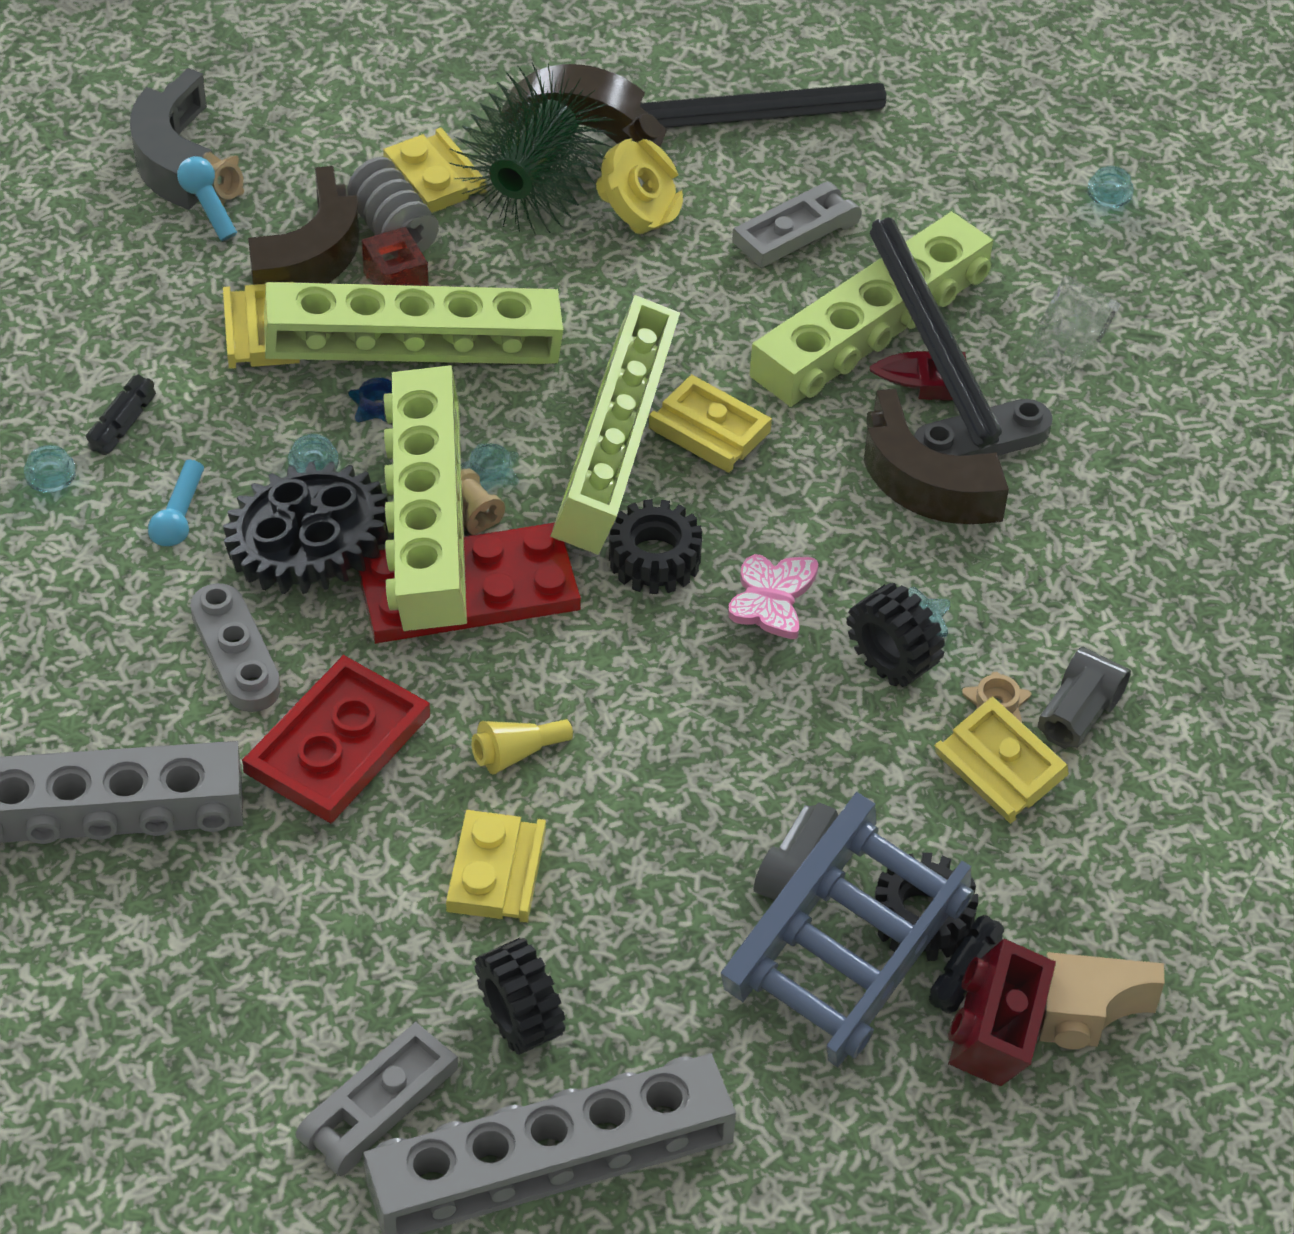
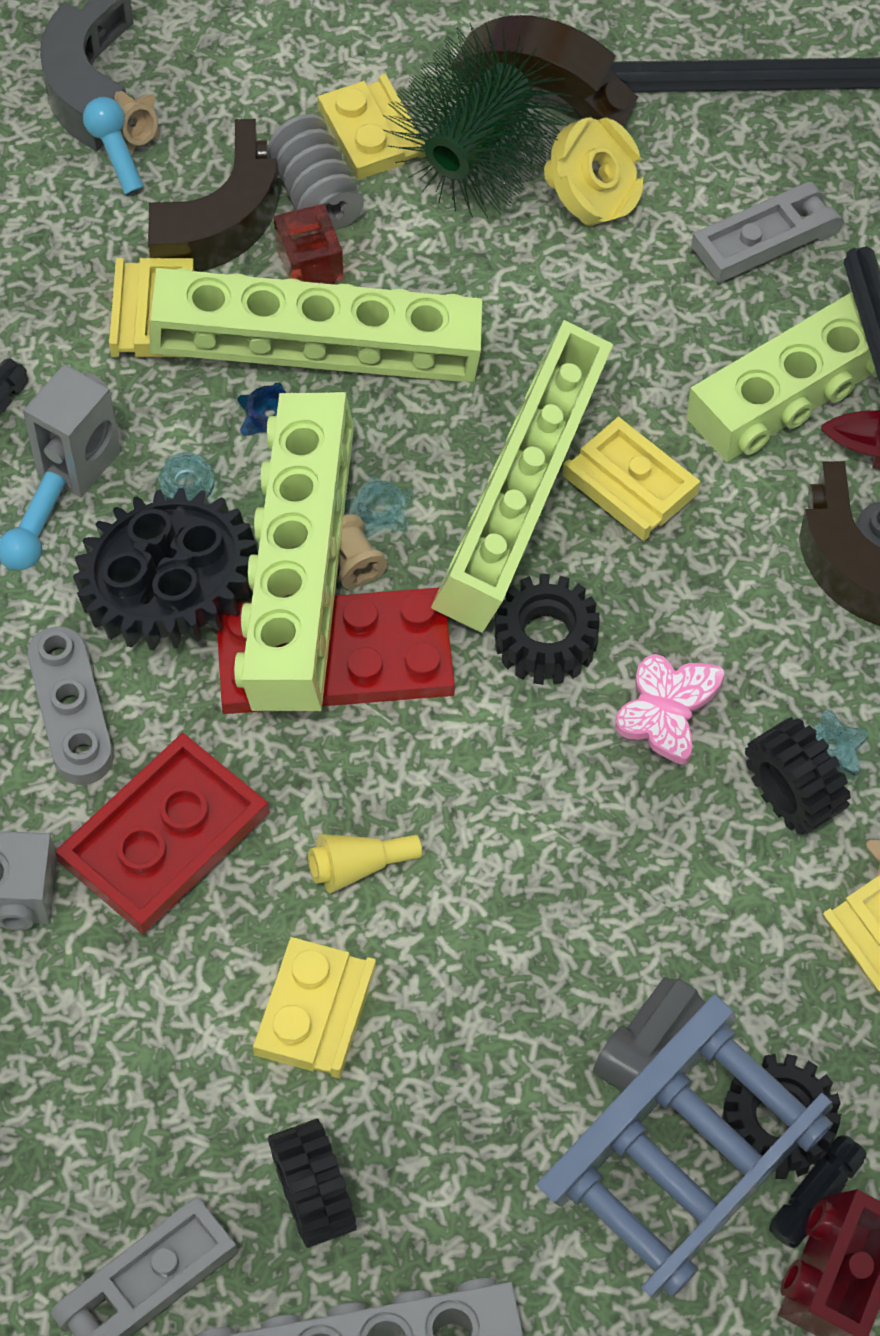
camera: 10 degrees right, 10 degrees up
(208, 419) = (73, 429): none -> light grey brick

